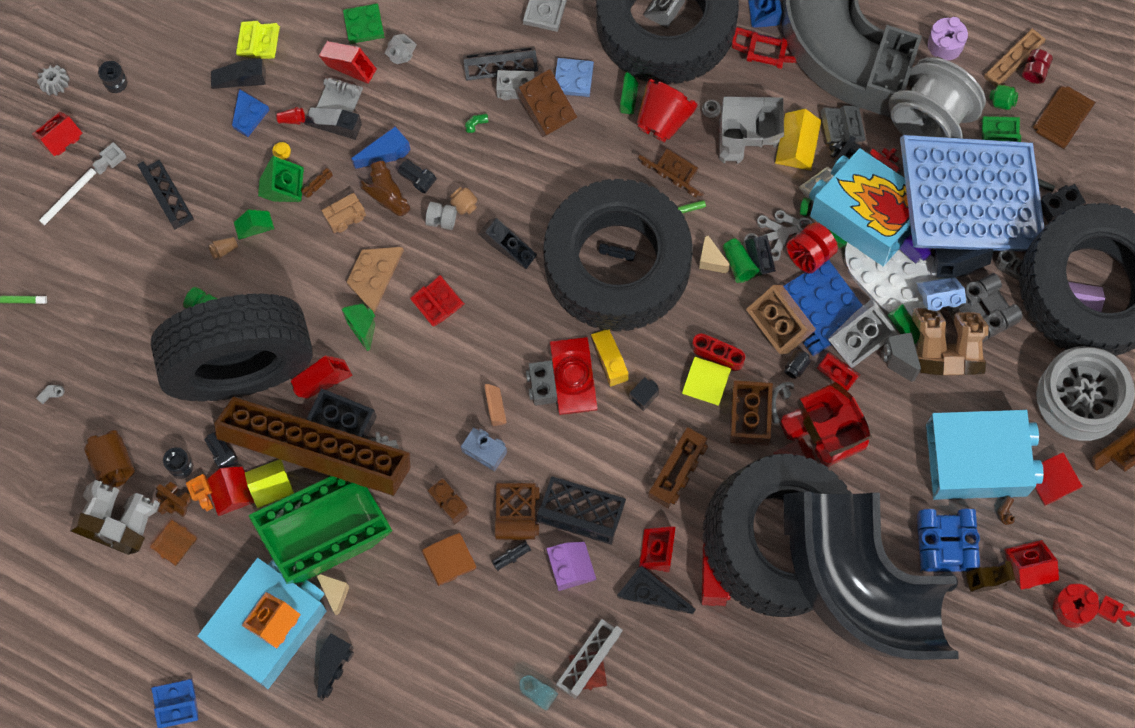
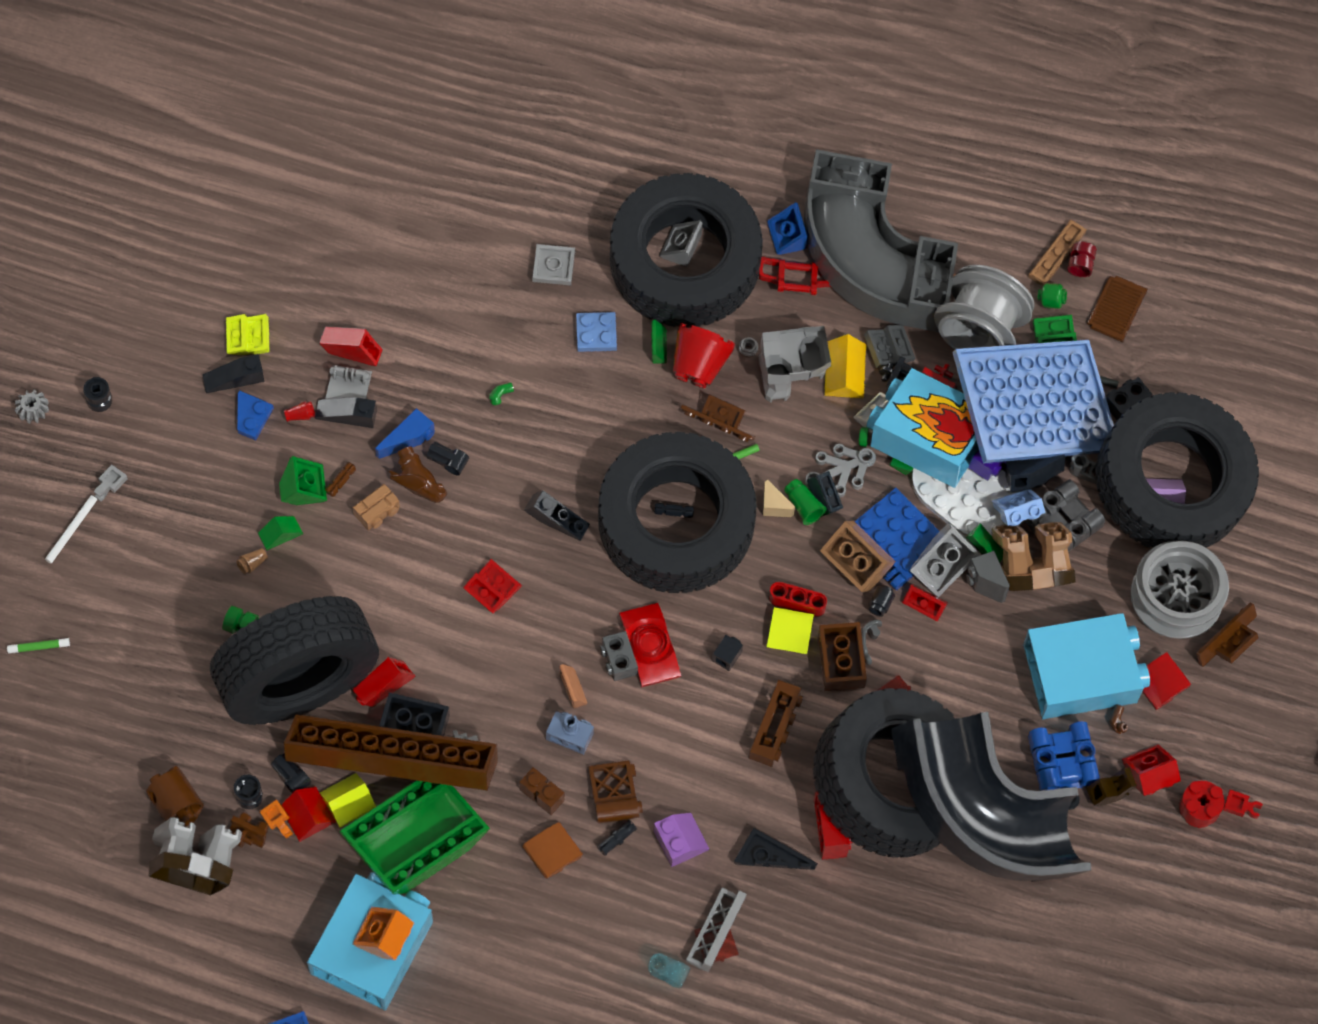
camera: 15 degrees left, 5 degrees down
(49, 392) = (94, 737): light grey arm -> none
(57, 134) = (48, 463): red slope -> none
(163, 201) = (175, 515): black fence -> none
(173, 543) = (257, 876): clear orange piece -> none
(281, 150) = (296, 449): yellow plate -> none
(332, 659) = (449, 968): black slope -> none
(334, 591) = (439, 900): tan slope -> none
(361, 323) = (416, 620): green slope -> none
(363, 23) = (359, 302): green plate -> none
(373, 274) = (418, 567): medium nougat wing -> none
(400, 49) = (406, 325): light grey brick -> none
(441, 216) = (481, 496): light grey wheel -> none
(464, 201) = (502, 477): medium nougat head -> none
(499, 56) = (514, 319): black fence -> none
(510, 80) = (536, 348): light grey brick -> none
(546, 103) = (573, 363): reddish brown brick -> none
(573, 523) = (675, 795): black fence -> none
(610, 357) = (686, 620): yellow slope -> none
(657, 548) = (768, 808): red slope -> none
(812, 247) = (878, 478): red wheel -> none
(831, 421) = (927, 652): red piece -> none
(947, 38) = (984, 241): lavender brick -> none

